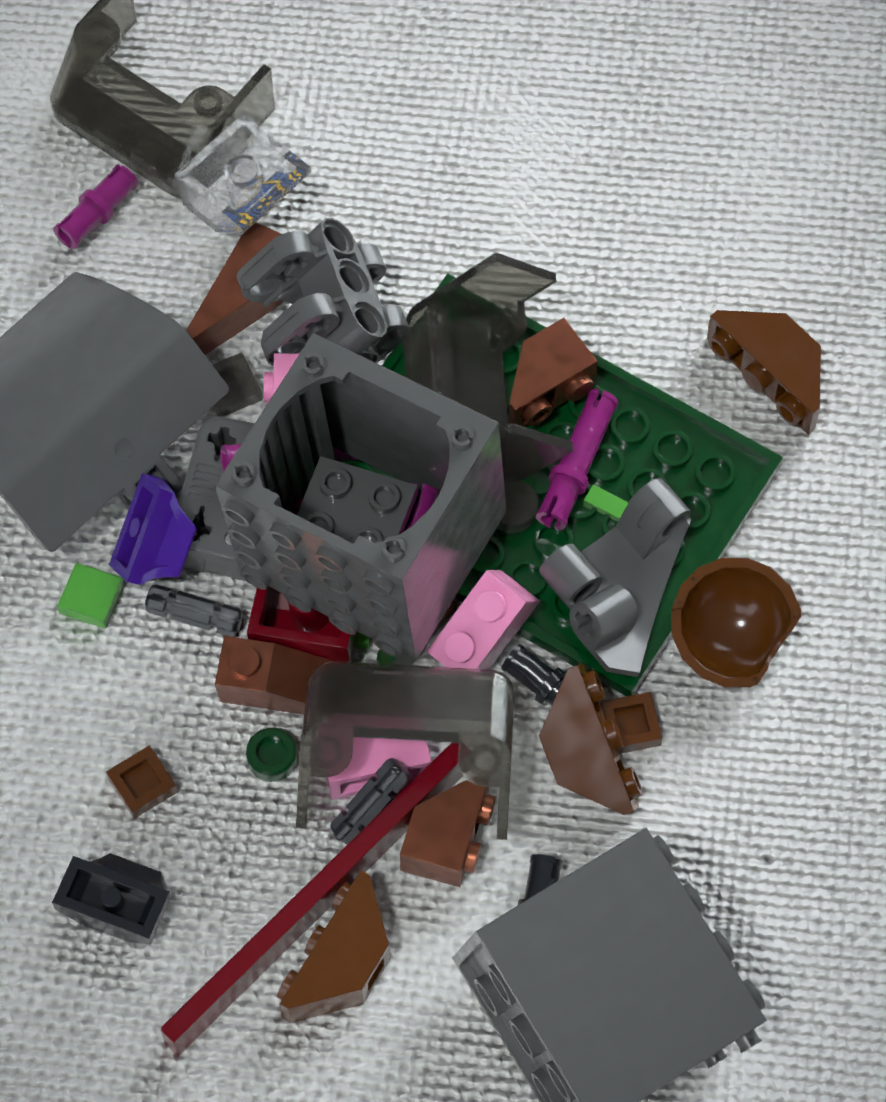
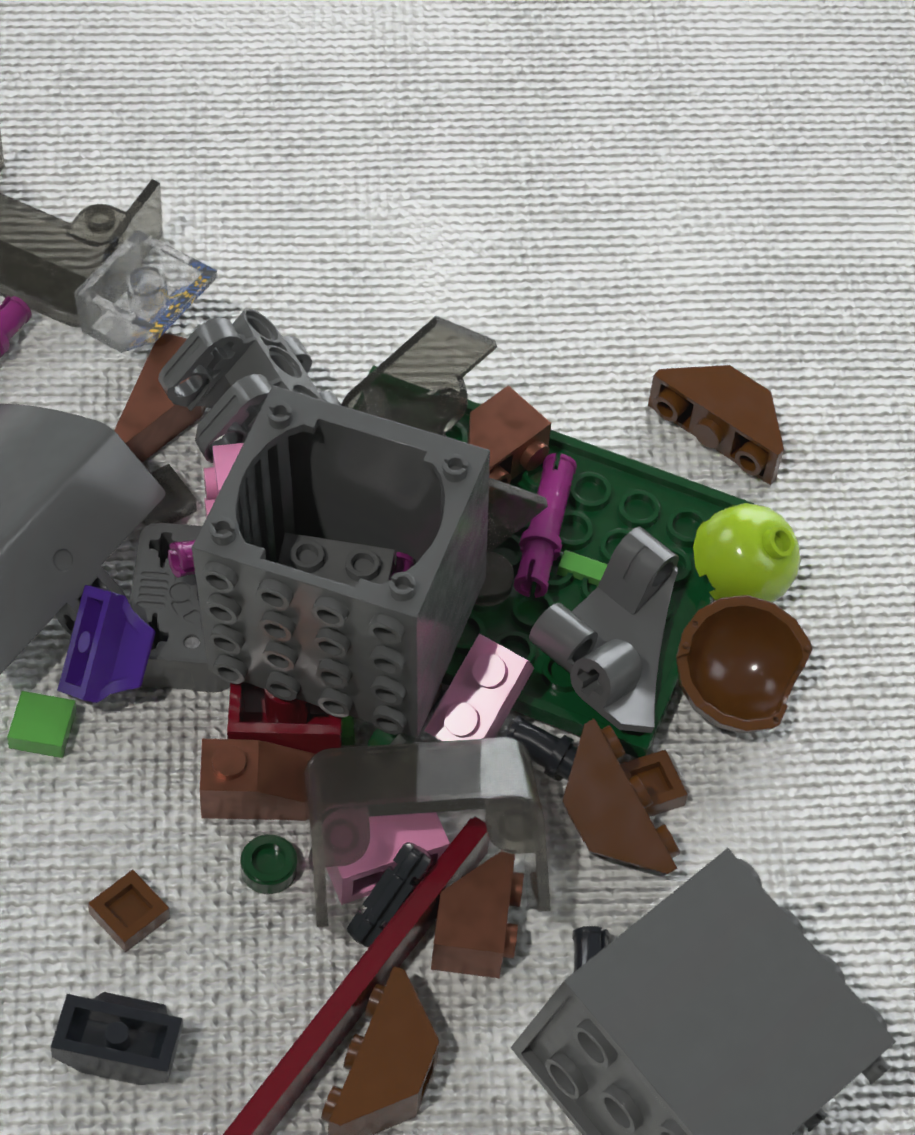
camera: 15 degrees left, 10 degrees down
(194, 610) = (157, 725): black axle -> none
(761, 512) = (747, 552): none -> lime cylinder

